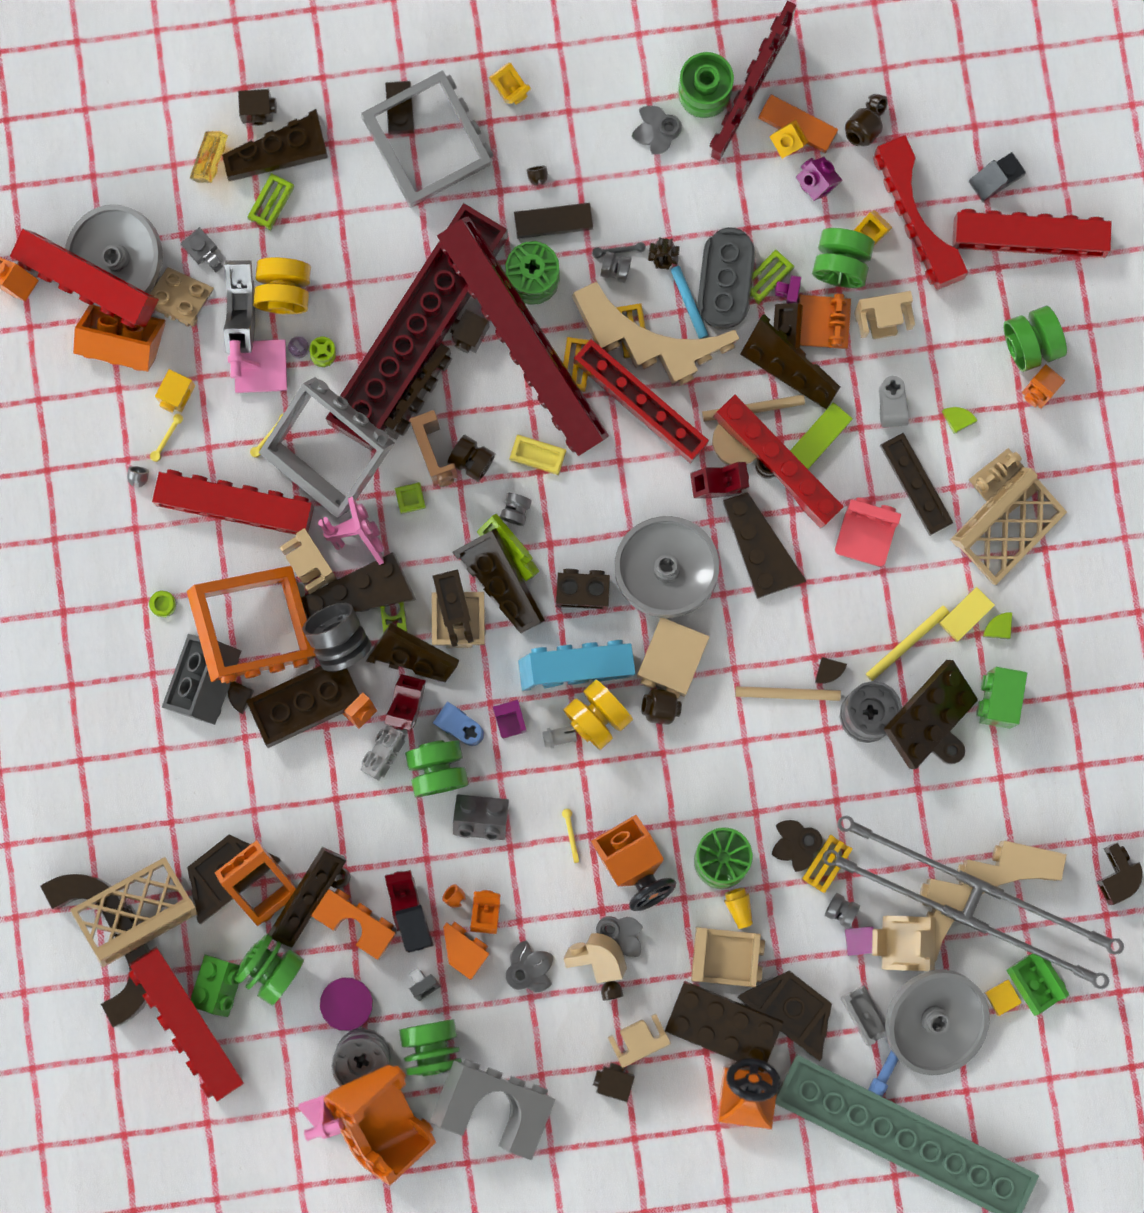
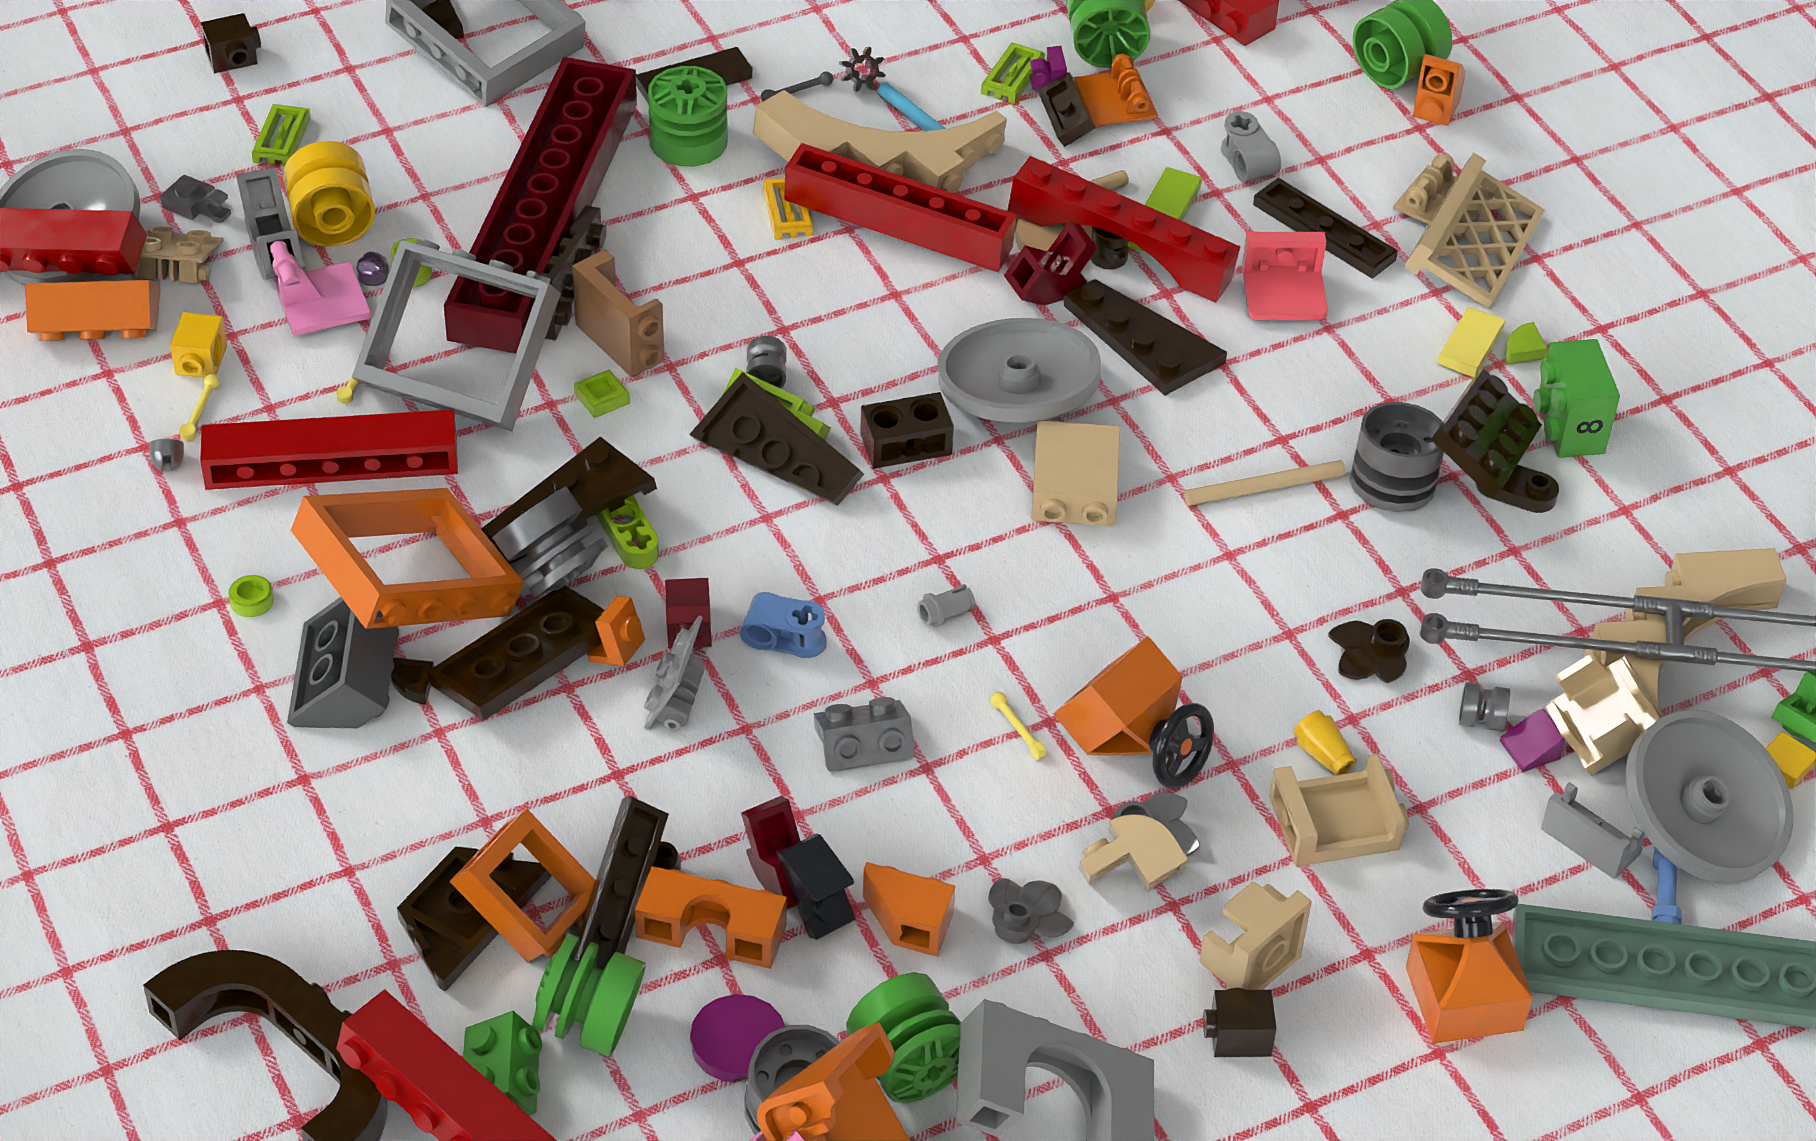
camera: 20 degrees left, 35 degrees down
(143, 932) = (342, 991): tan fence -> none
(208, 157) = (176, 103): clear yellow plate -> none
(287, 147) = (267, 83): dark brown wing -> none
(307, 561) = (476, 464): tan panel -> none
(357, 525) = (547, 408): bright pink plate -> none
(408, 651) = (666, 548): dark brown wing -> none
(423, 985) = (861, 967): dark grey tile -> none
(435, 761) = (770, 671): bright green wheel -> none
(452, 604) = (720, 461): dark brown hinge -> none
(454, 896) = (864, 844): orange hinge -> none
(469, 331) = (621, 196): dark brown brick -> none
(471, 458) = (695, 322): dark brown wheel -> none
(476, 610) = (731, 495): tan panel -> none
(485, 912) = (922, 842): orange bracket -> none
(509, 719) = (859, 599): magenta panel -> none
(522, 336) = (705, 163): dark red brick -> none
(537, 173) = (653, 35): dark brown hinge -> none
(537, 454) = (773, 308): light yellow tile -> none
(576, 665) = (931, 509): medium azure wedge -> none
(592, 720) = (996, 548): yellow wheel -> none
(610, 264) = (810, 89): flat silver wheel -> none
(611, 990) = (1177, 903): dark brown hinge -> none
(660, 706) = (1085, 530): dark brown head -> none
(722, 1025) = (1374, 893): dark brown plate -> none
(723, 858) = (1270, 675): bright green wheel -> none
(726, 278) = (957, 77): dark grey tile -> none
(781, 359) = (1077, 132): dark brown wing -> none
(796, 1004) = (1475, 851): dark brown wing -> none
(815, 883) = (1423, 692): yellow tile -> none
(829, 670) = (1311, 443): dark brown tile -> none
(884, 314) = (1188, 54): tan panel -> none
(907, 643) = (1419, 371): light yellow bar -> none
(958, 418) = (1344, 151): lime tile -> none

